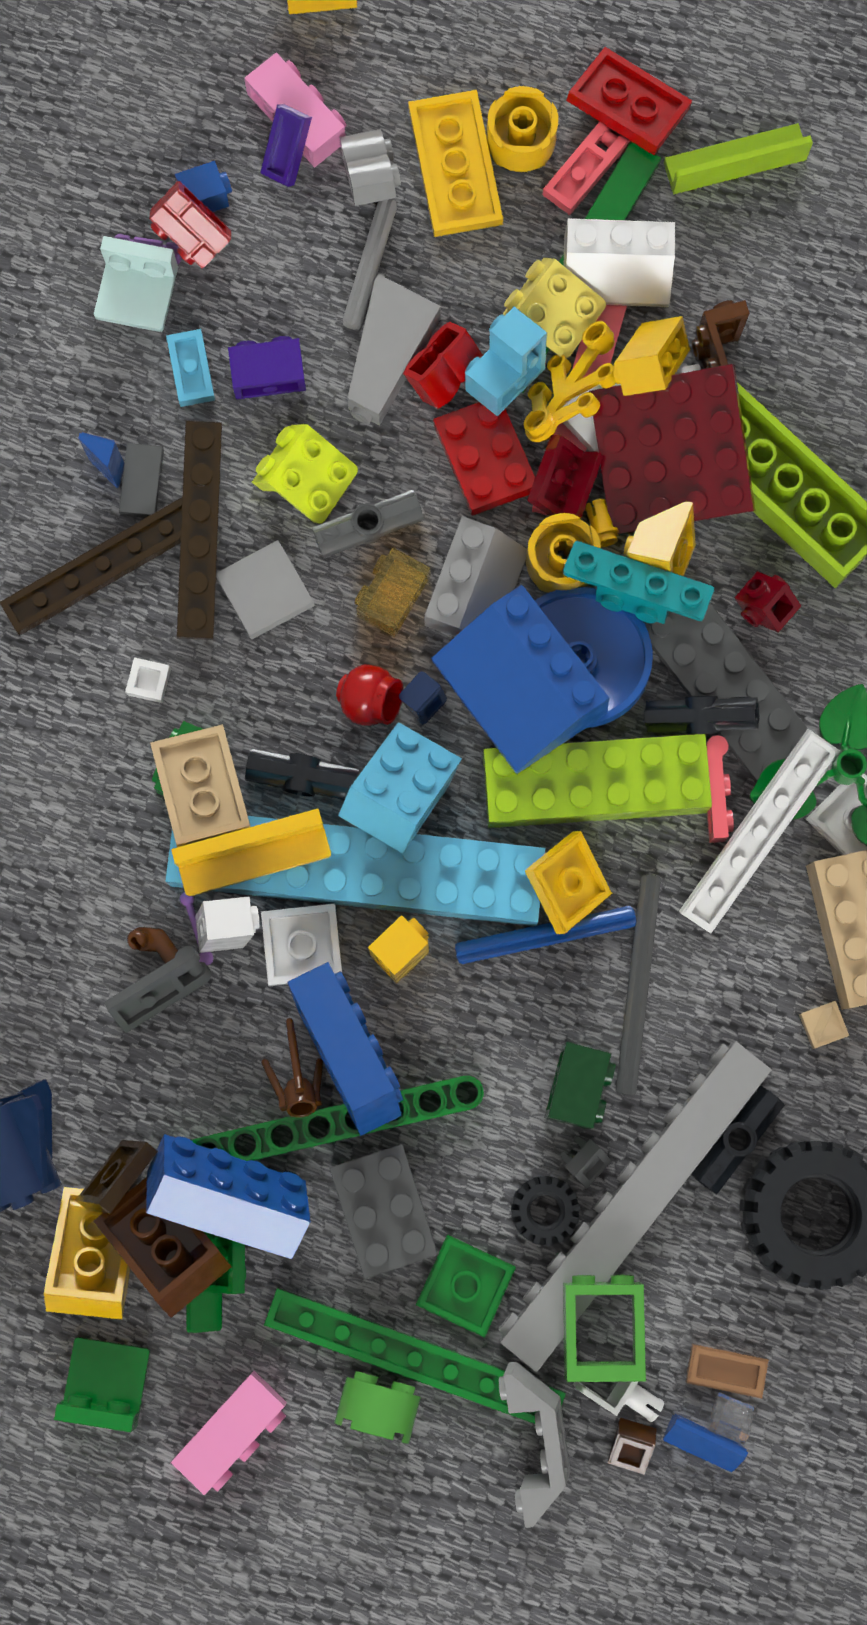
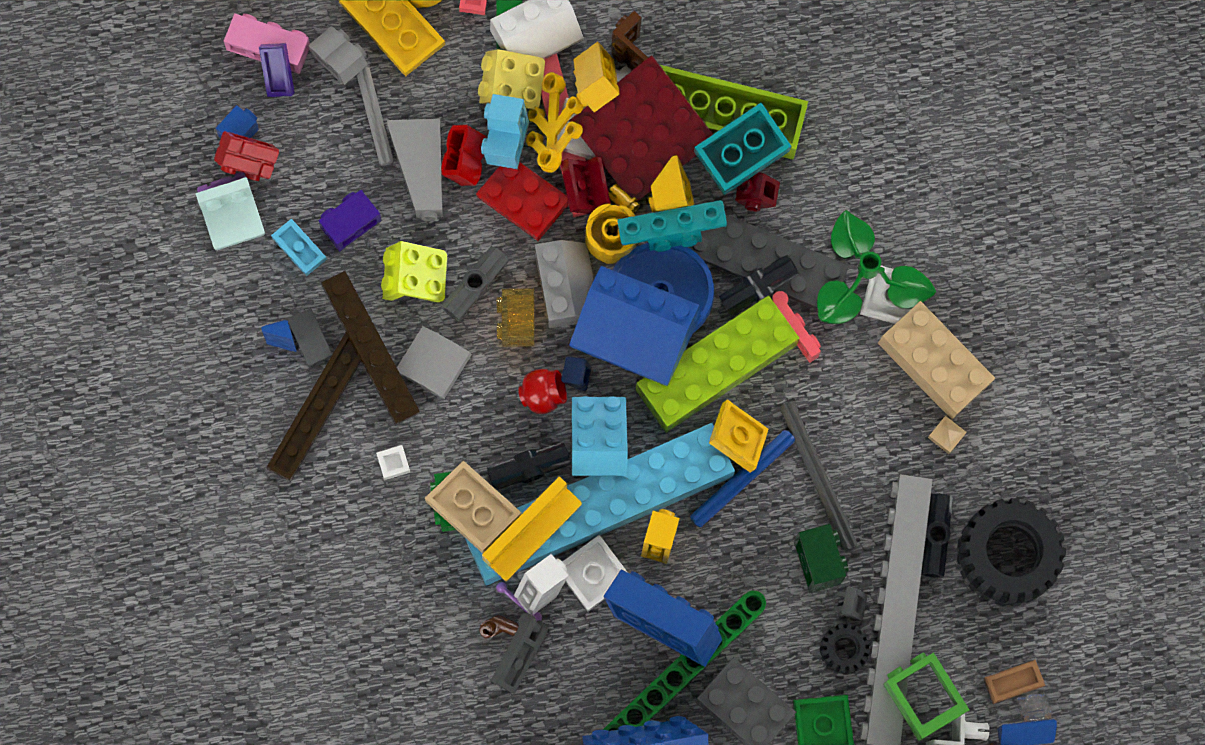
camera: 35 degrees left, 5 degrees down
(299, 1096) = (651, 664): reddish brown plant -> none
(759, 831) = (837, 337): white tile -> none
(777, 538) = (742, 148): none -> teal brick

